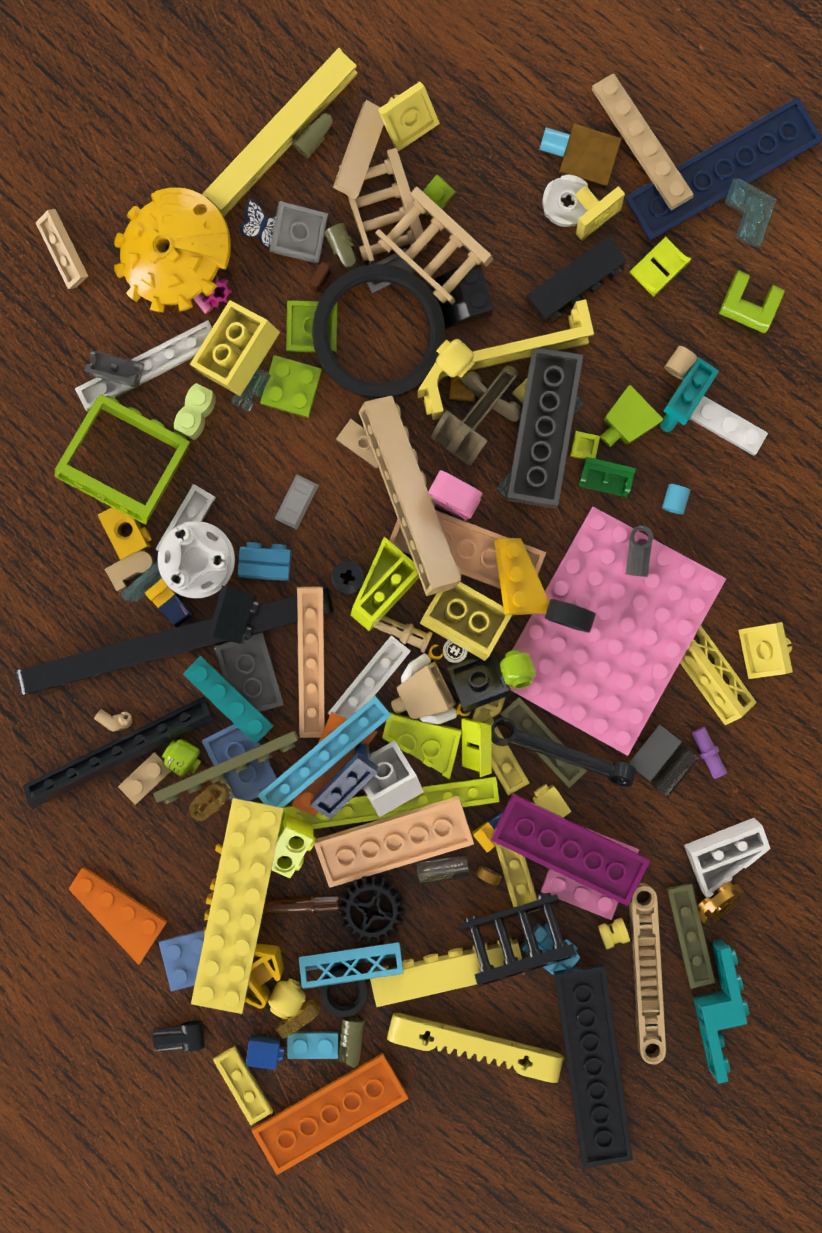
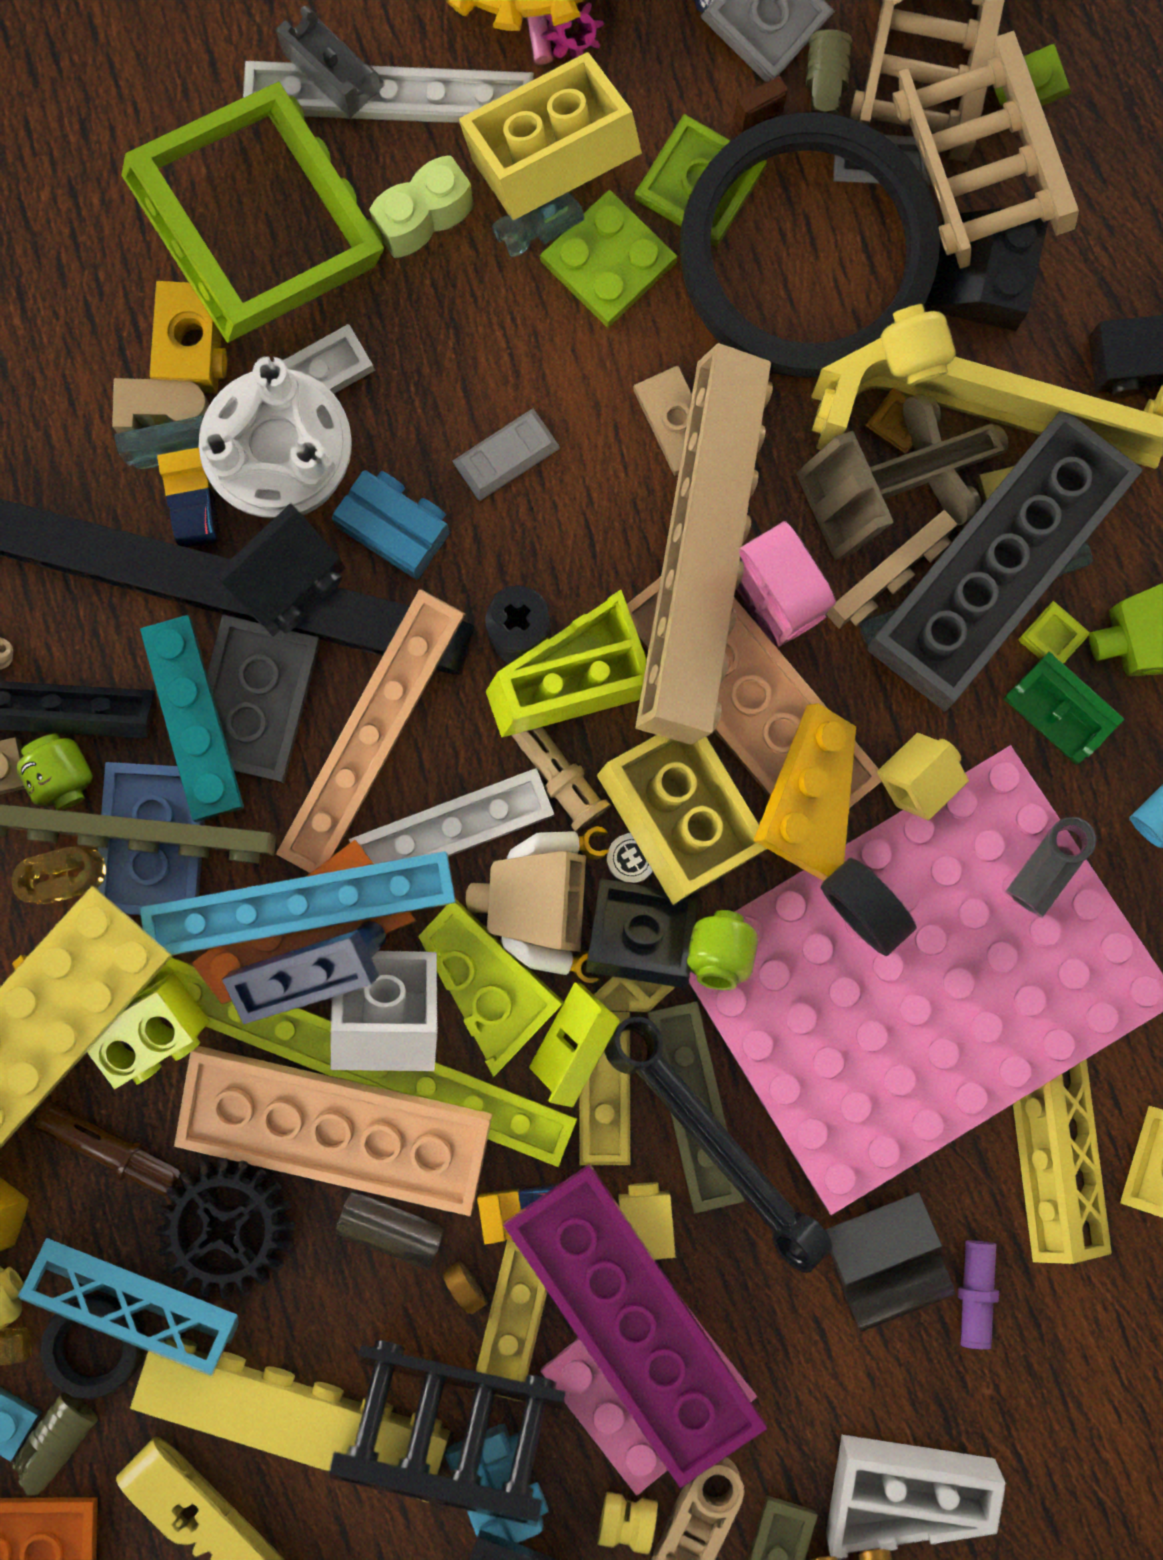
camera: 30 degrees right, 5 degrees down
(499, 458) = (894, 571): none -> tan plate
(562, 542) = (923, 775): none -> light yellow brick

